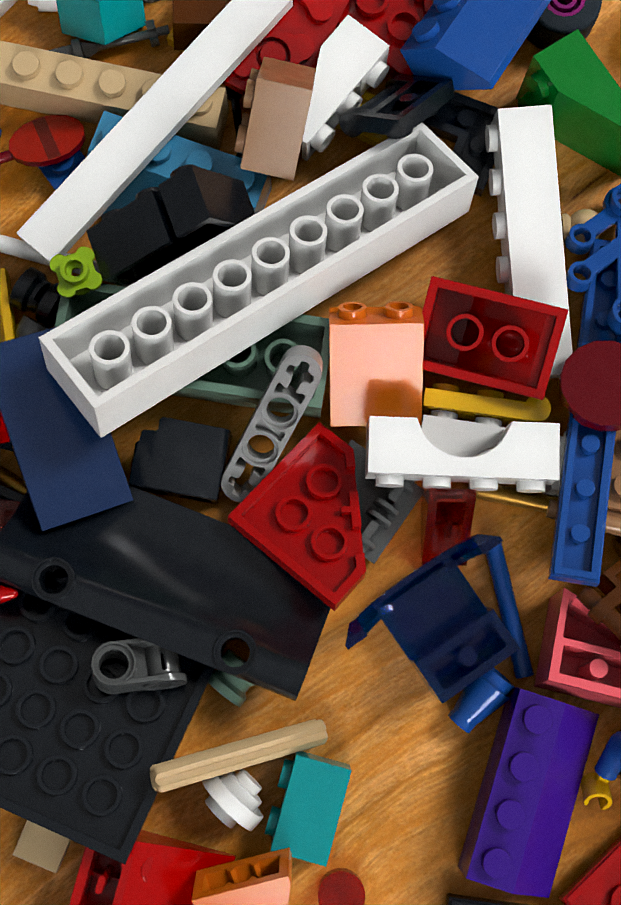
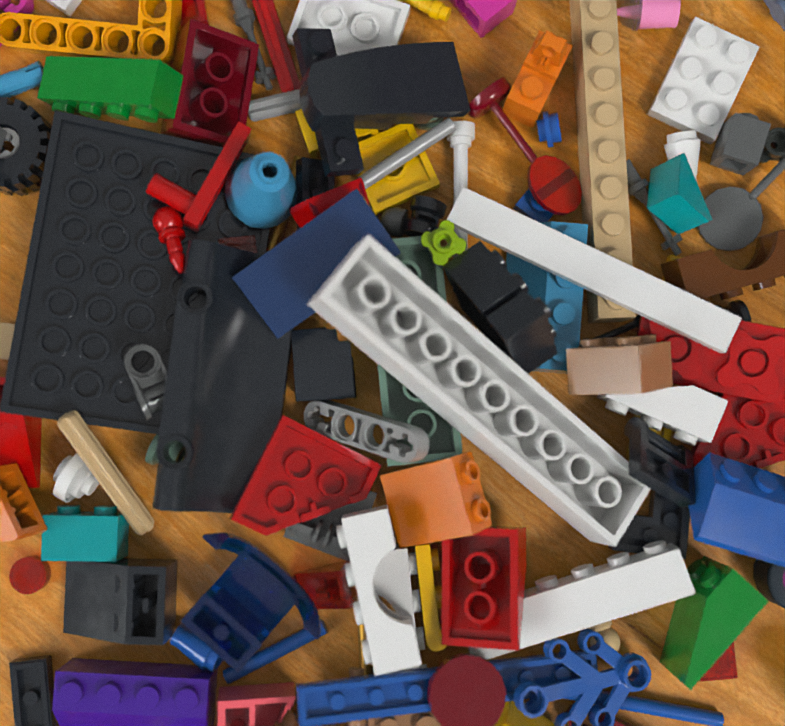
camera: 80 degrees right, 5 degrees up
(399, 783) = (121, 600): none -> black slope

